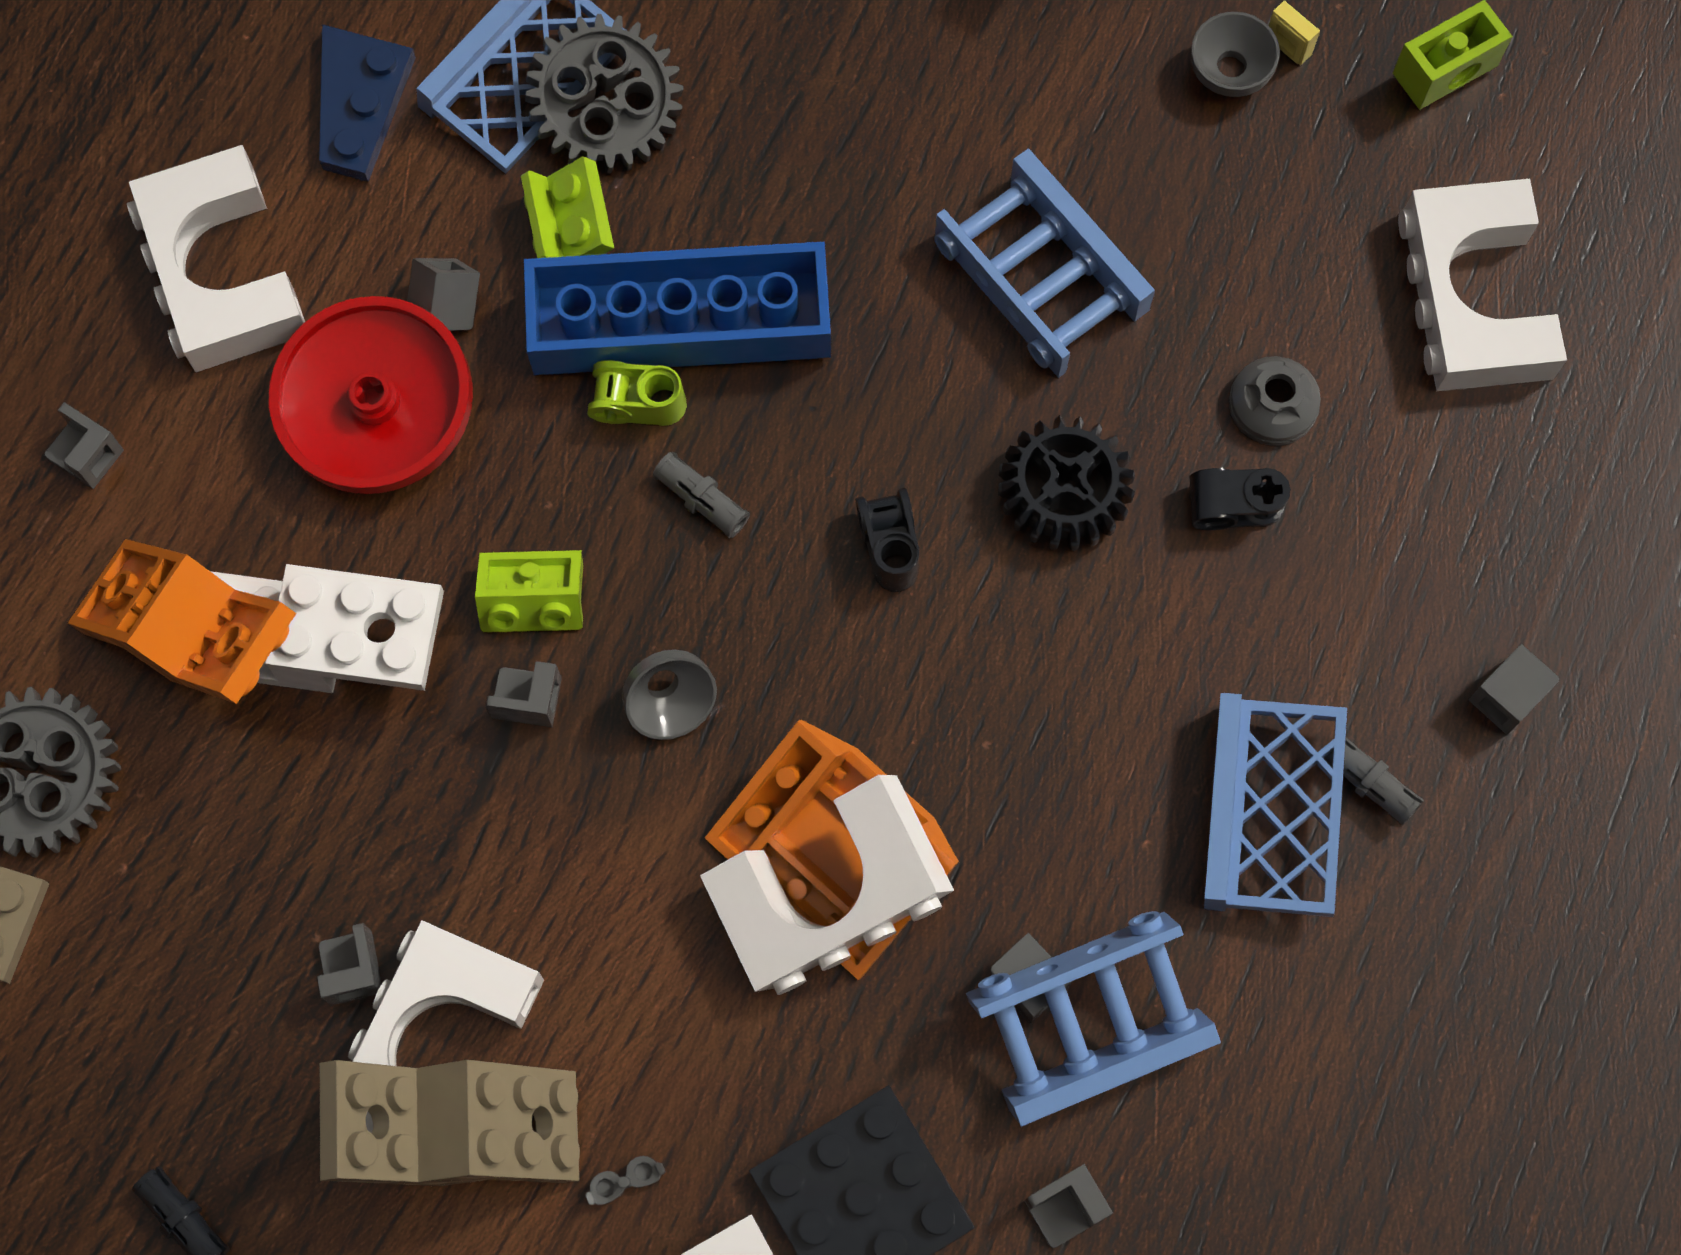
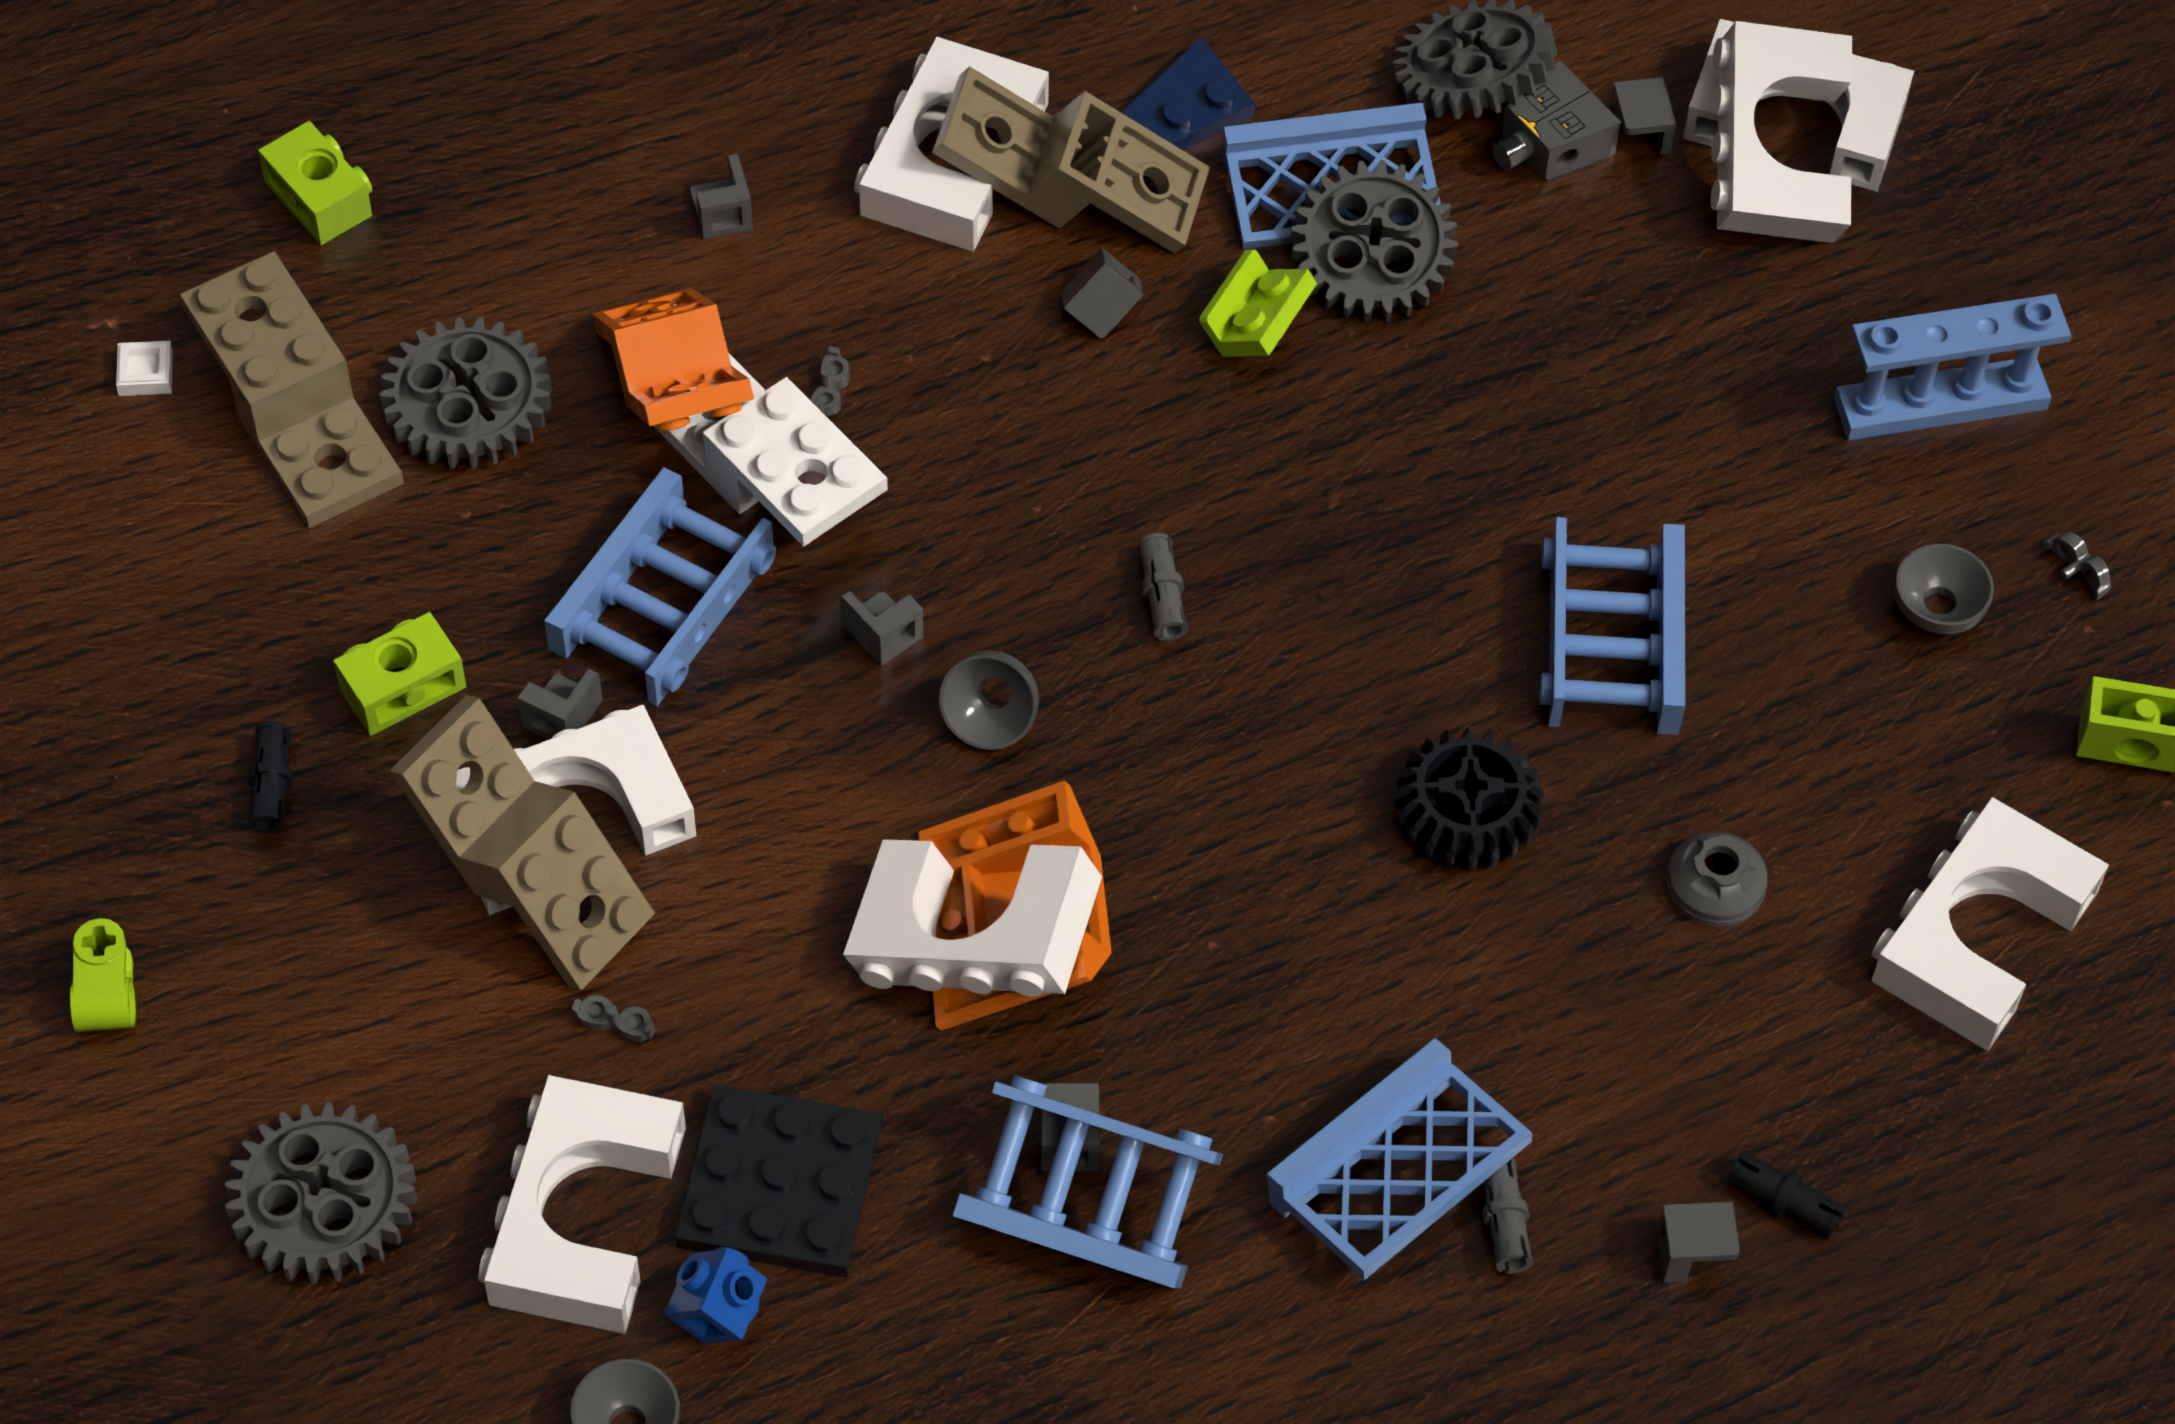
camera: 40 degrees right, 15 degrees down
(210, 1079) = (387, 697): none -> lime brick
(287, 789) = (635, 545): none -> medium blue fence
(302, 522) = (834, 377): none -> dark grey piece
(325, 205) = (1071, 159): none -> dark tan bracket
(370, 394) = (972, 318): red dish -> none
(529, 591) = (957, 552): lime bracket -> none
(626, 391) = (1178, 472): lime piece -> none
(678, 307) = (1276, 434): blue brick -> none
(889, 531) = (1284, 723): black piece -> none
(1068, 1206) = (935, 1311): dark grey panel -> none
(1230, 498) = (1601, 918): black piece -> none
(1294, 33) = (2014, 612): light yellow tile -> none
(1532, 601) = (1787, 1194): none -> black pin

